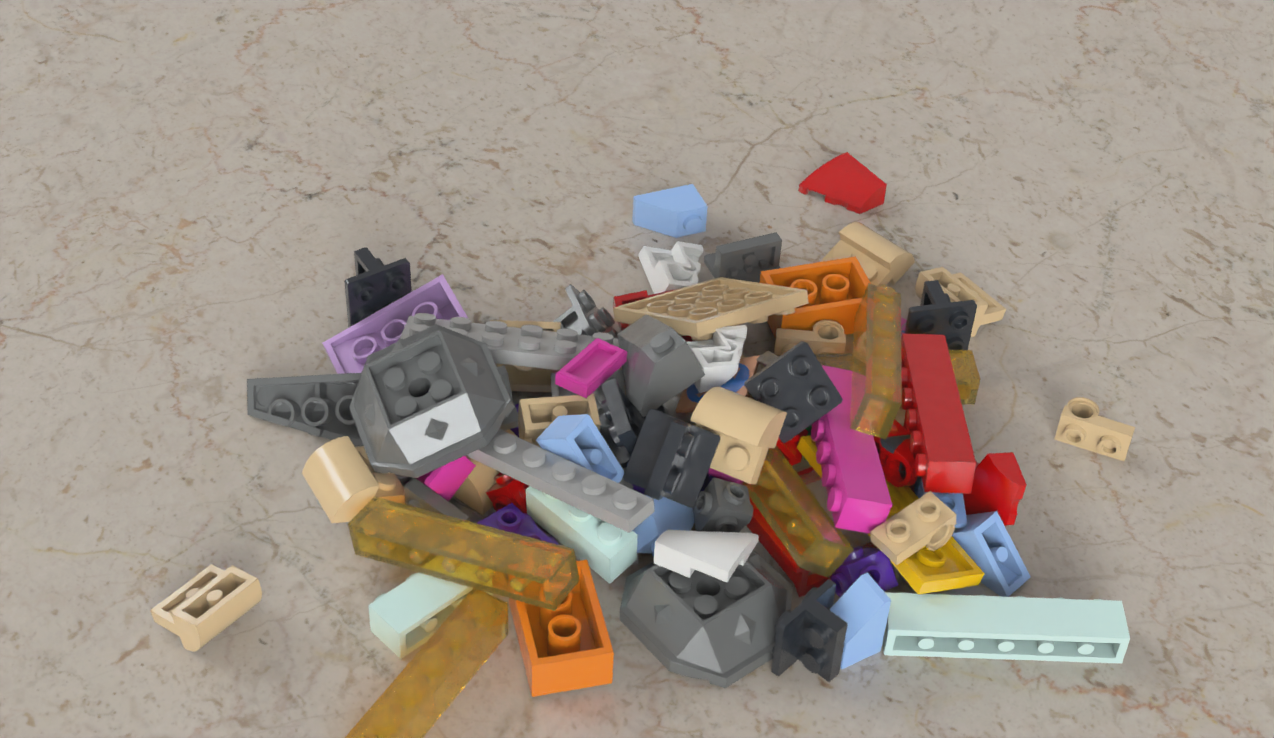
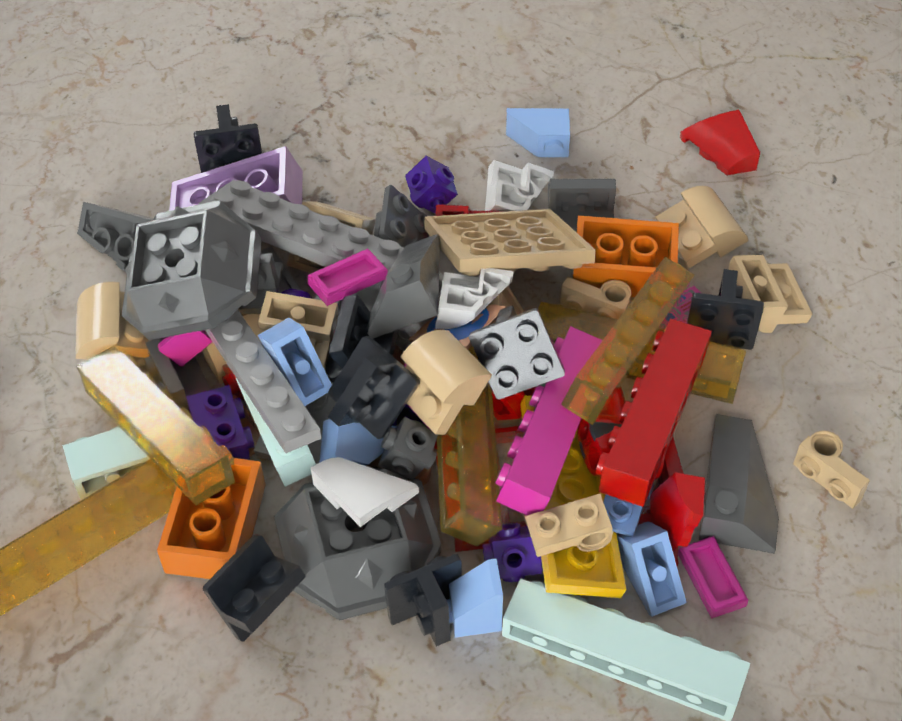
camera: 25 degrees right, 10 degrees up
(598, 279) = (430, 184): none -> dark purple brick
(644, 674) = (251, 586): none -> black bracket
(1044, 550) = (712, 577): none -> dark pink tile
(1046, 492) = (737, 490): none -> dark grey wedge

